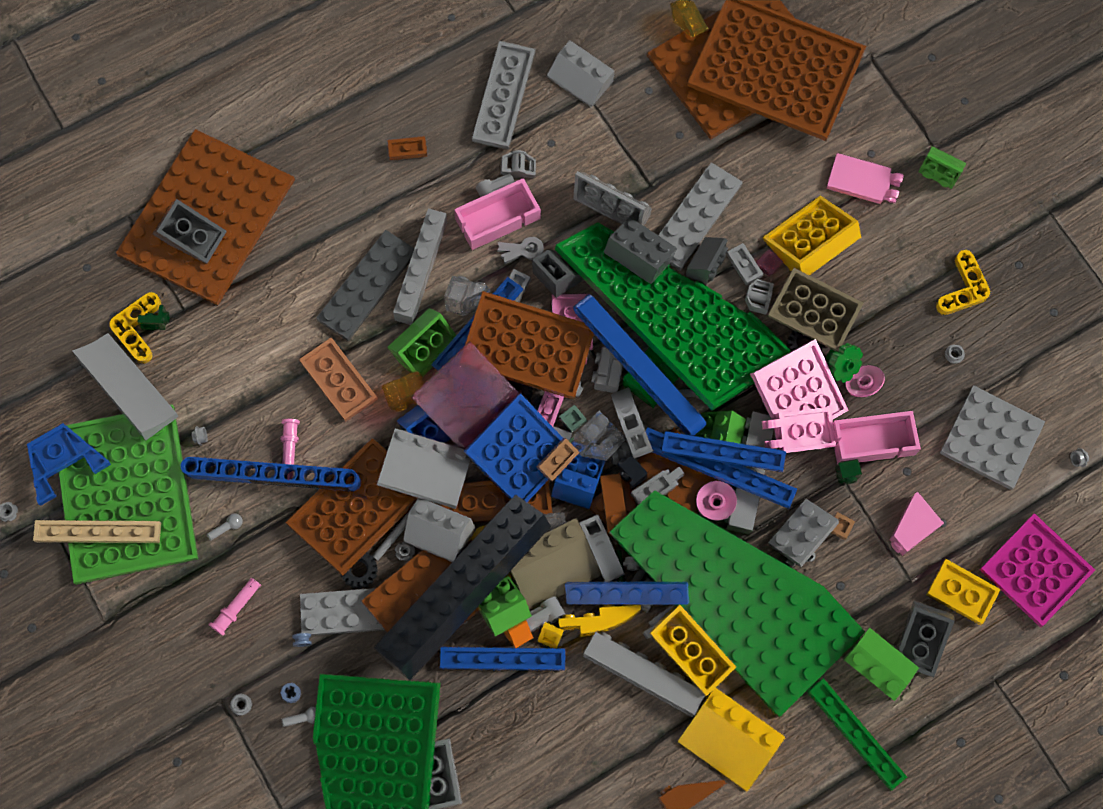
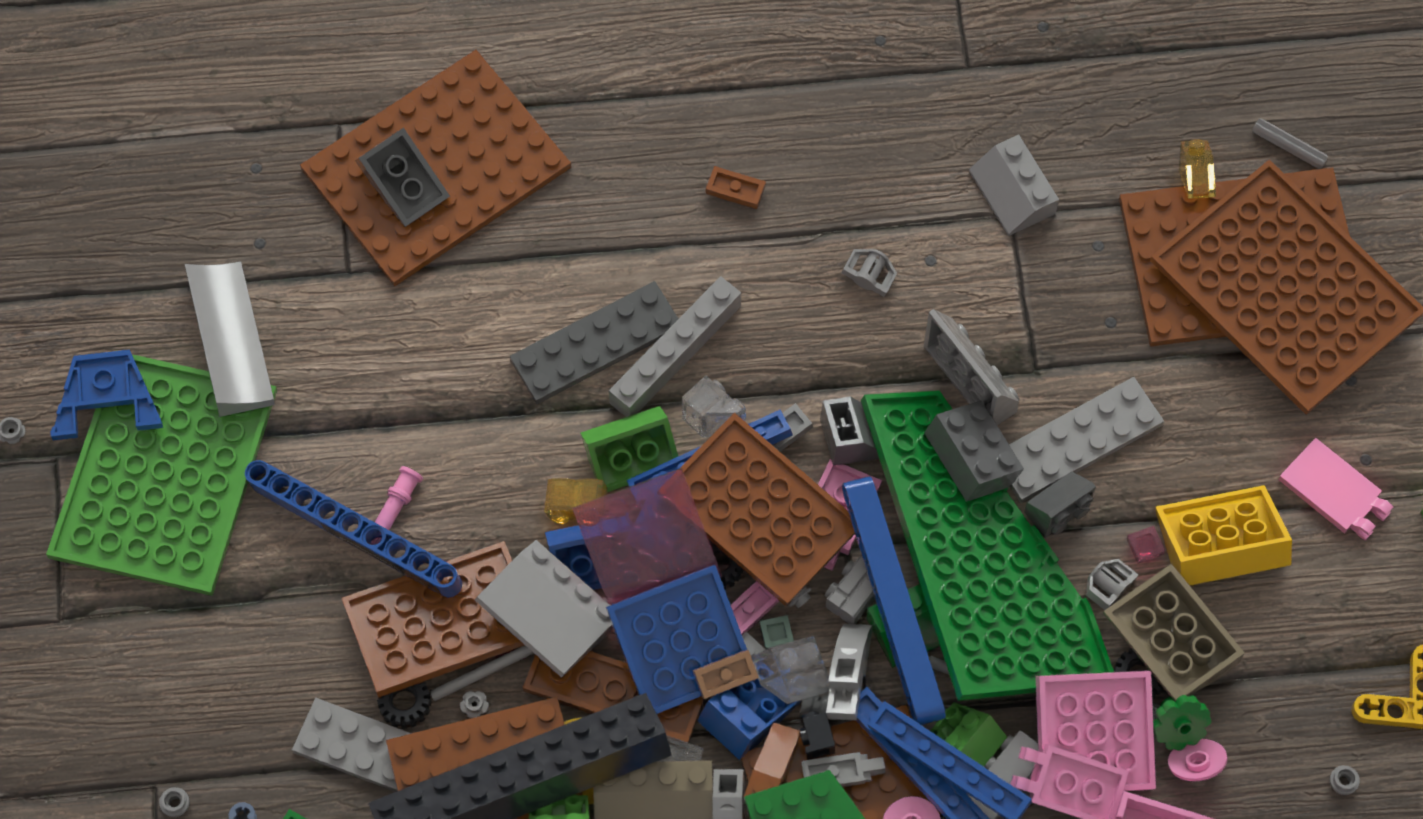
camera: 30 degrees right, 5 degrees down
(97, 531) = (105, 503): tan plate -> none
(129, 323) = (273, 261): yellow beam -> none
(154, 322) = (303, 272): dark green bracket -> none
(199, 435) = (290, 440): light grey plate -> none
(229, 614) = (214, 681): bright pink pin -> none
(233, 521) = (279, 569): light grey bar -> none
(301, 639) = (289, 756): sand blue bush -> none
(338, 379) = (498, 447): nougat plate -> none
(438, 530) = (526, 693): light grey slope -> none
(488, 186) = (816, 288): light grey piece -> none
(497, 214) = (809, 322): bright pink piece -> none
(503, 95) = (897, 171): light grey plate -> none
(529, 248) = (829, 385): light grey piece -> none
(744, 264) = (1111, 531): light grey plate -> none

